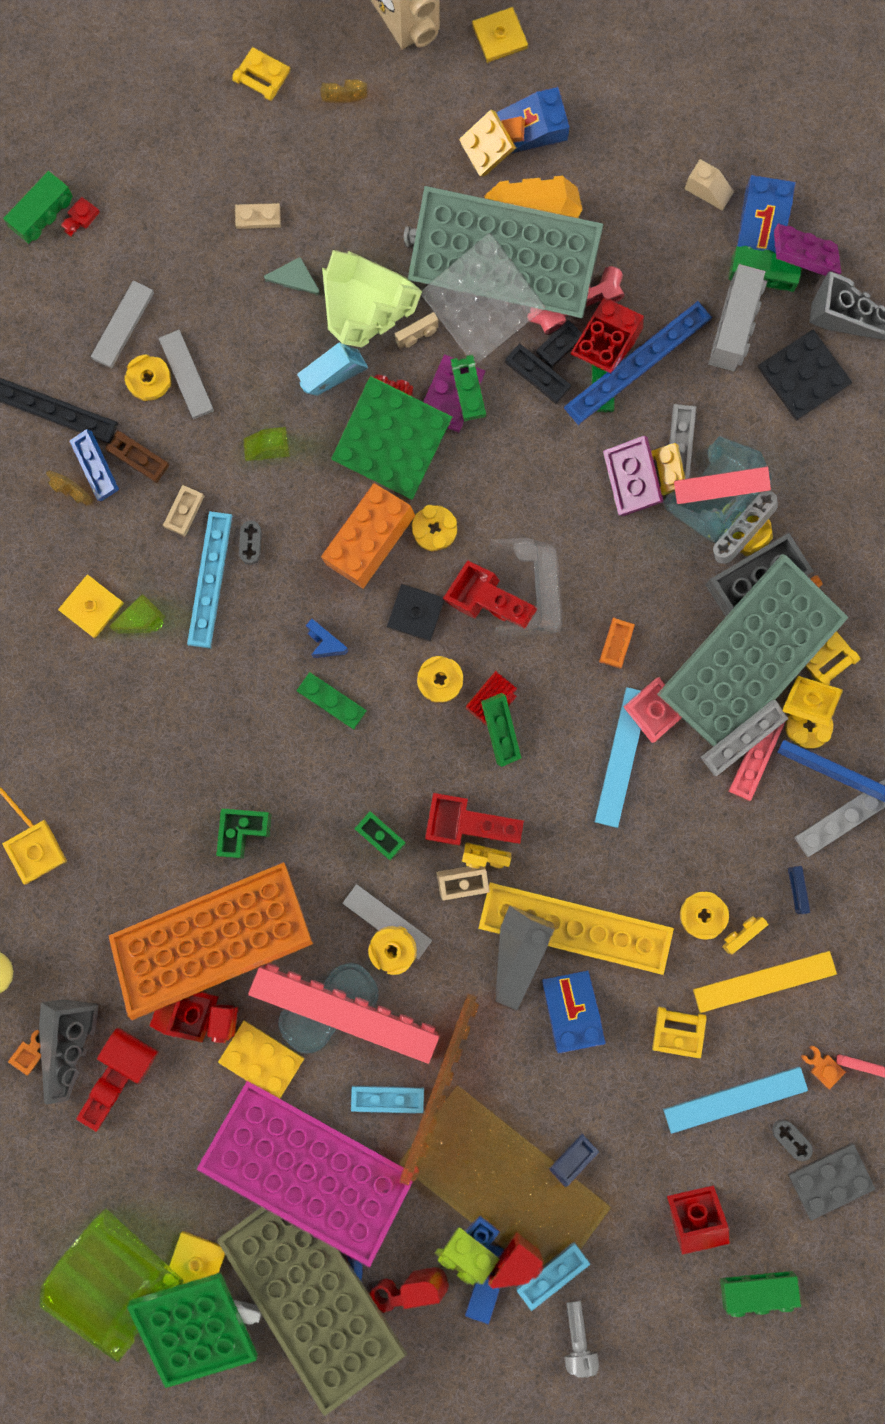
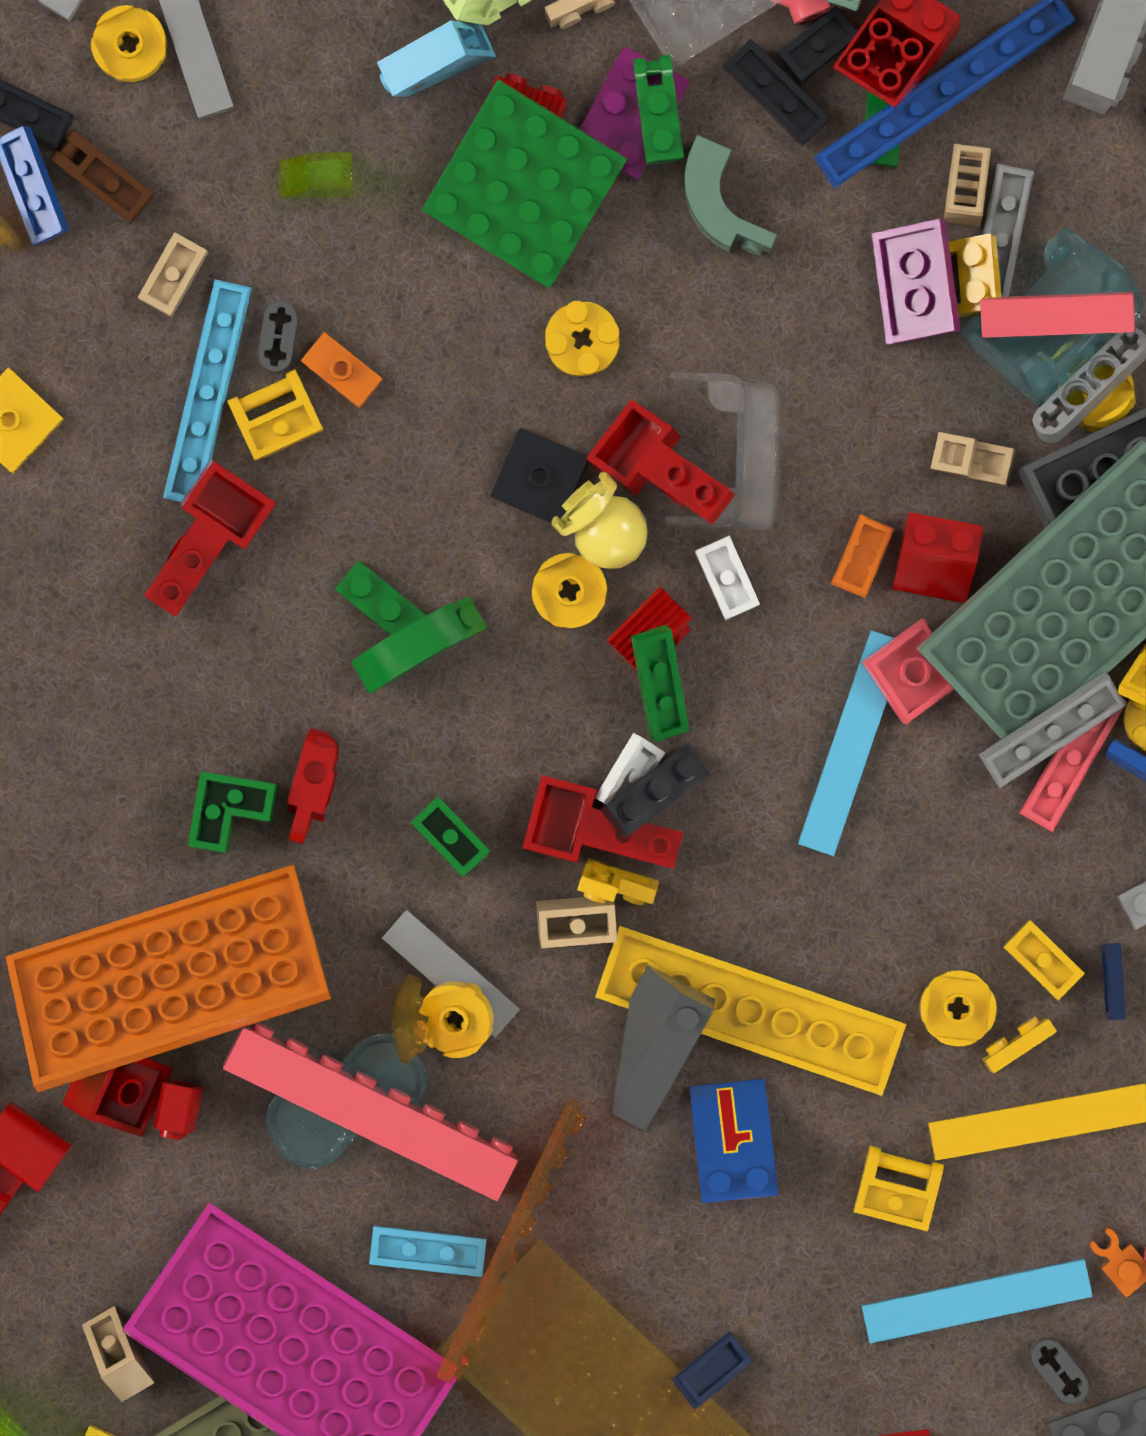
camera: 10 degrees right, 5 degrees up
(139, 618) = (89, 448): clear neon green slope -> none
(195, 1186) = (117, 1355): none -> tan slope
(224, 648) = (224, 511): none -> red plate
(256, 595) = (281, 426): none -> yellow plate
(261, 1060) = (233, 1172): yellow plate -> none
(290, 559) = (341, 370): none -> orange plate
(291, 810) = (312, 783): none -> red piece
(329, 646) = (395, 520): blue slope -> none
(349, 718) = (418, 643): none -> green arch
(362, 954) = (408, 1024): none -> clear yellow slope
(368, 535) = (472, 344): orange brick -> none
(459, 637) = (605, 527): none -> light yellow tile
(487, 788) = (634, 763): none -> white plate
(504, 445) = (706, 206): none -> sand green arch
(504, 797) = (655, 791): none -> black plate
(535, 663) = (727, 578): none -> white plate
(655, 432) = (963, 214): none -> tan slope
(662, 639) = (937, 557): none -> red slope
(677, 580) = (973, 459): none -> tan slope
(754, 880) = (1043, 960): none -> yellow plate

